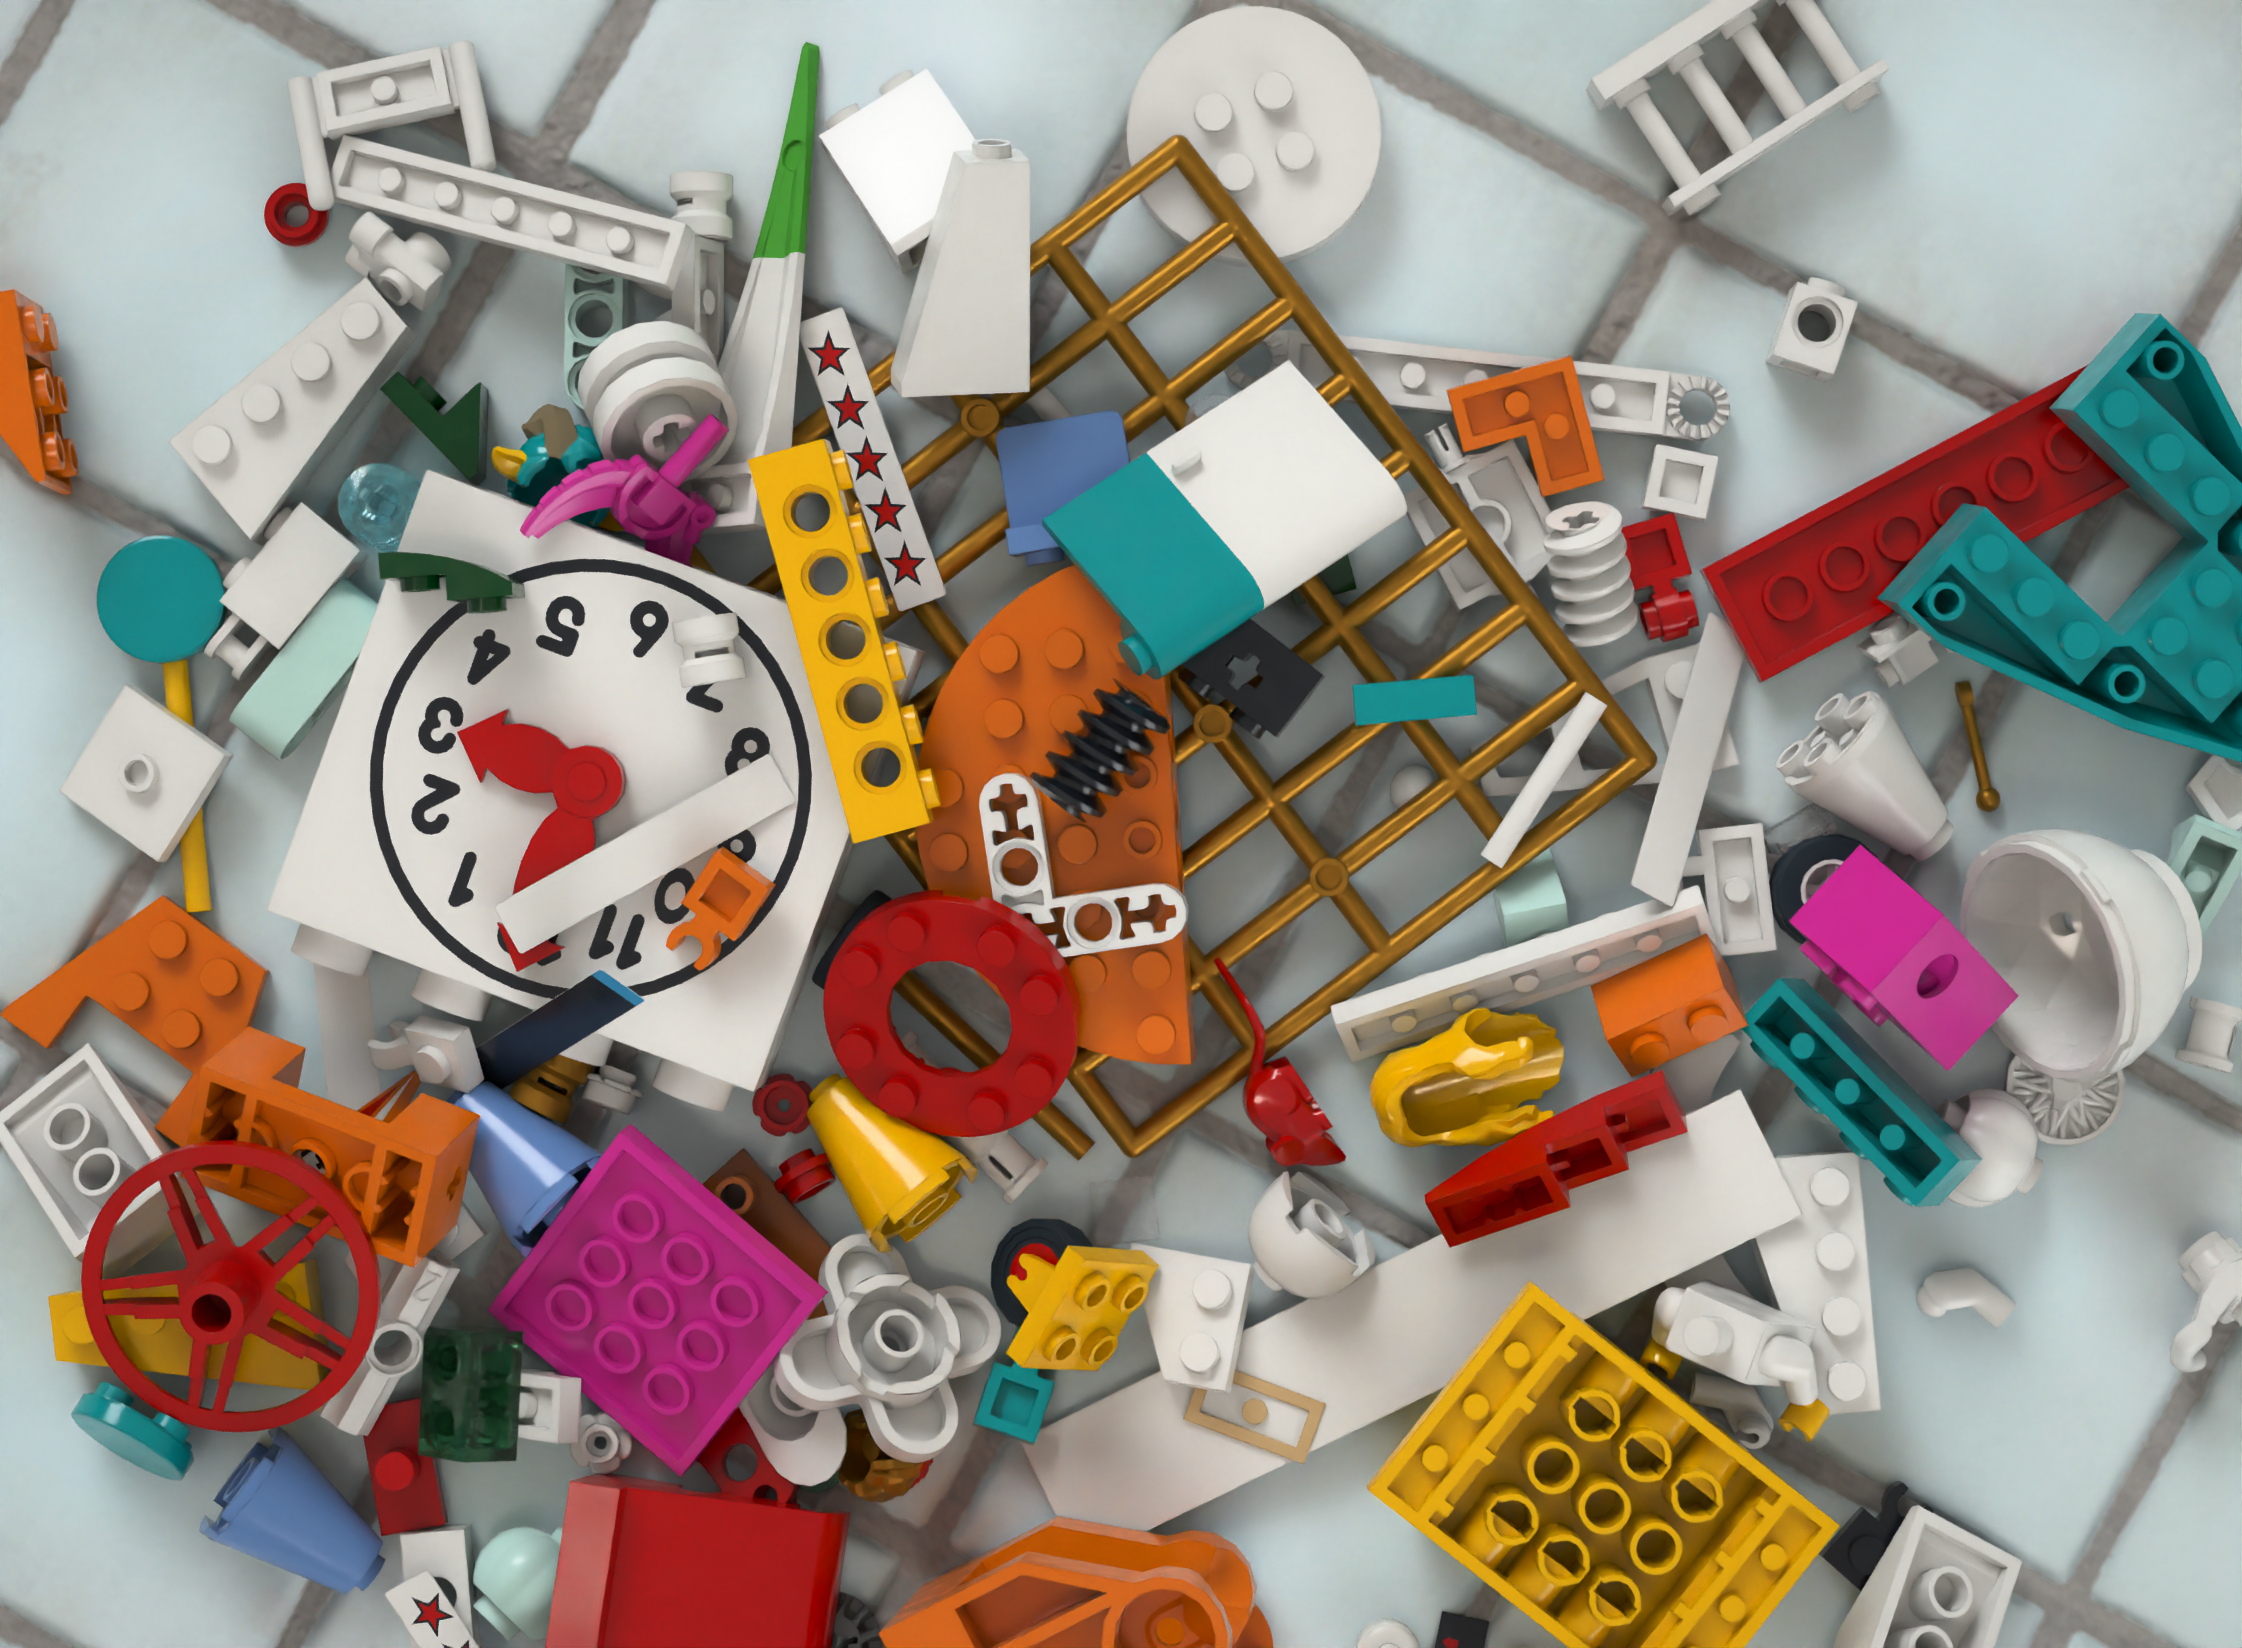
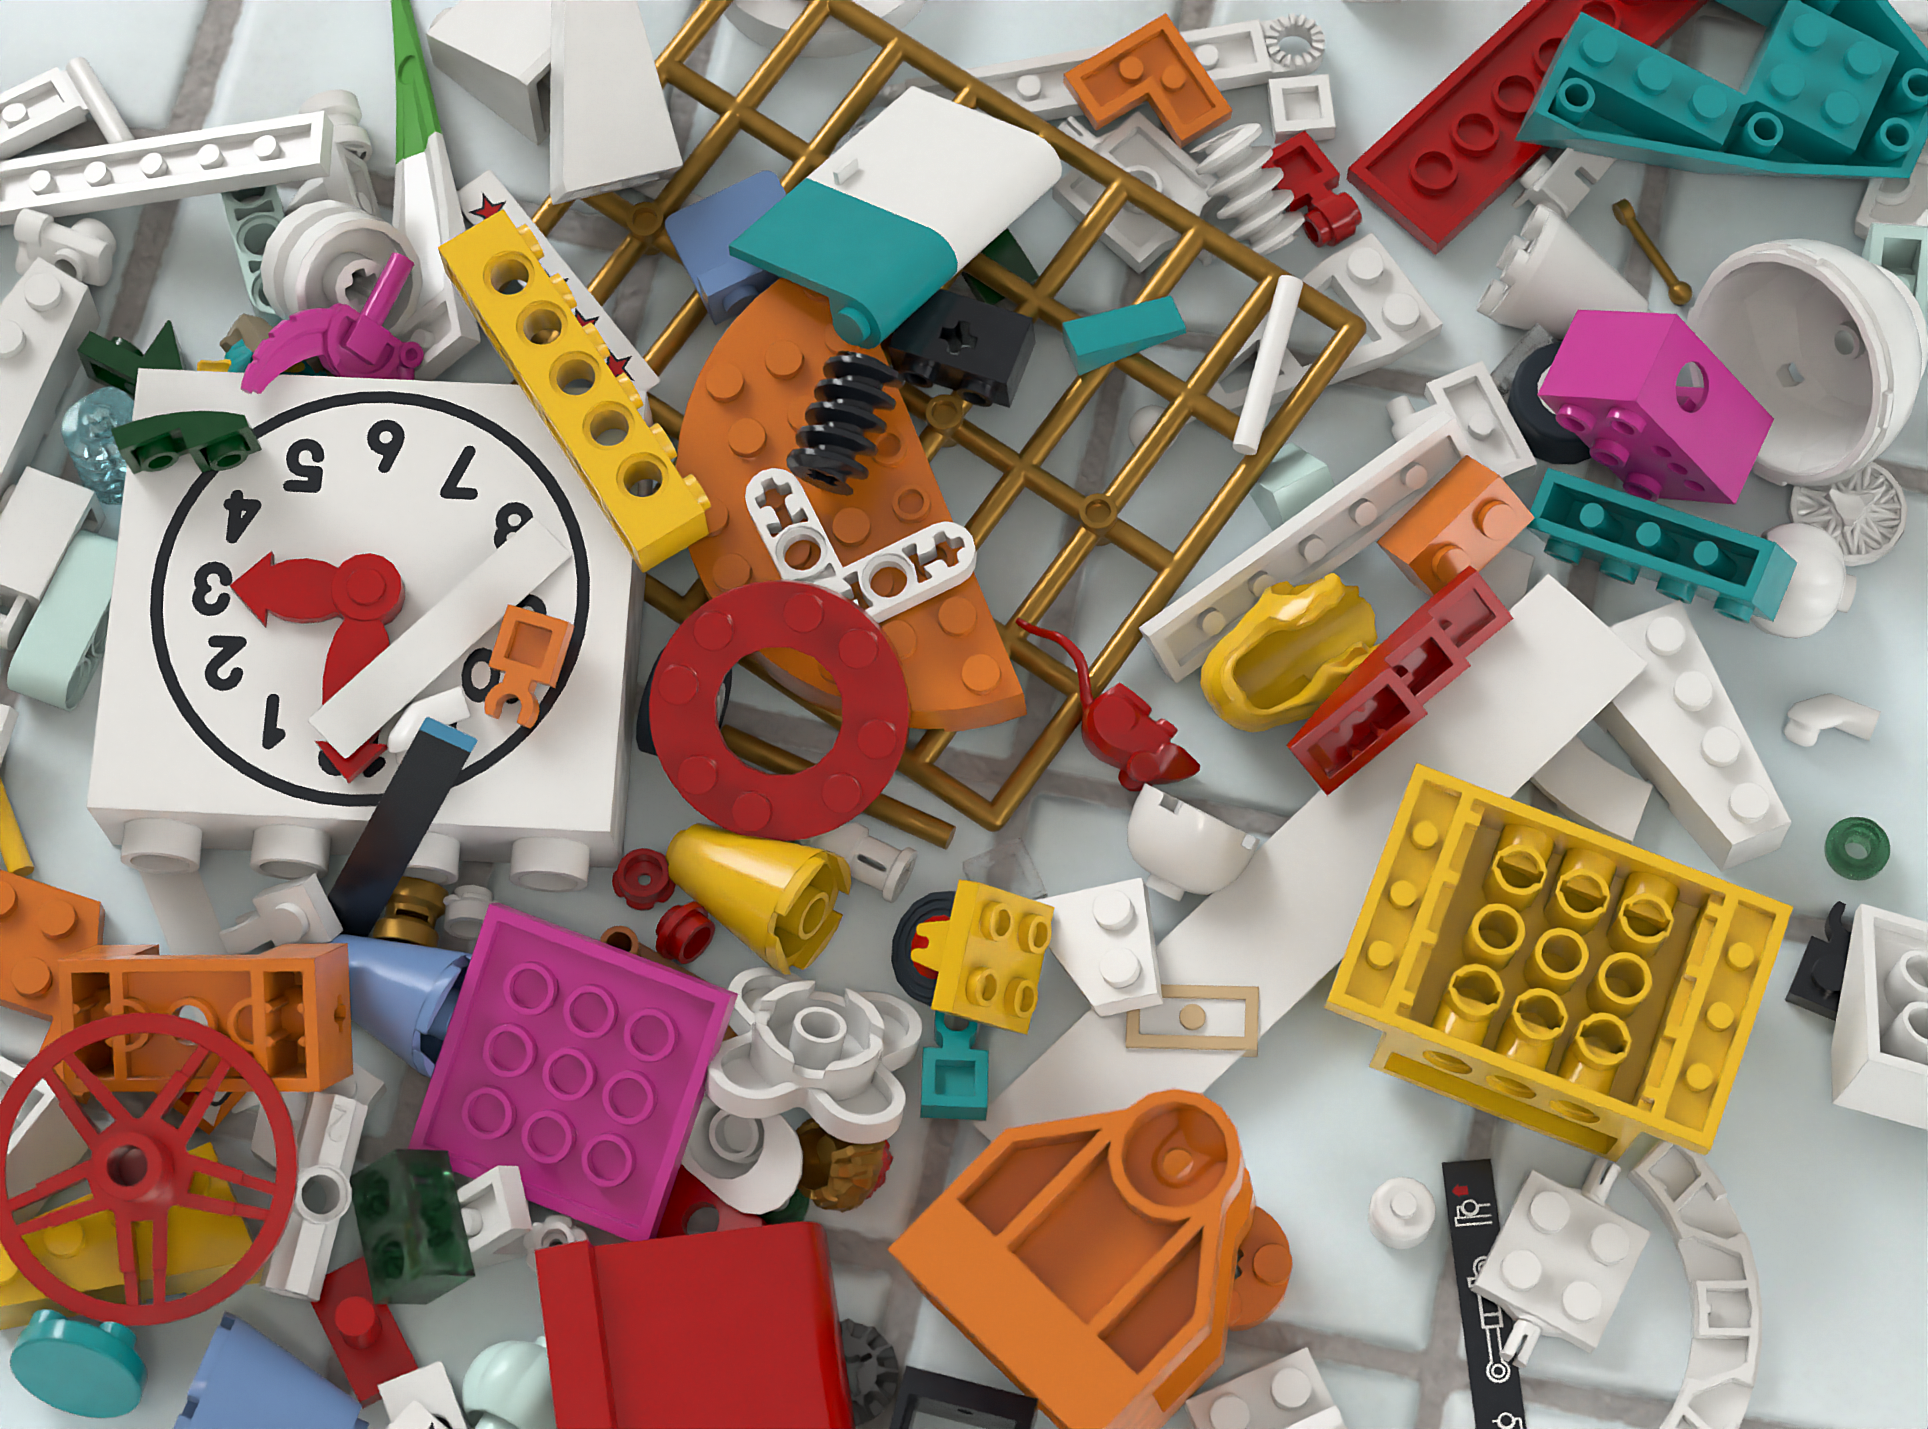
camera: 20 degrees left, 20 degrees down
(601, 932) = (445, 707): none -> white arm
(709, 649) = (449, 433): white wheel -> none
(1689, 762) = (1396, 321): white sticker -> none
(1741, 1342) = (1639, 785): white torso -> none
(1961, 1433) = (1865, 833): none -> clear green plate

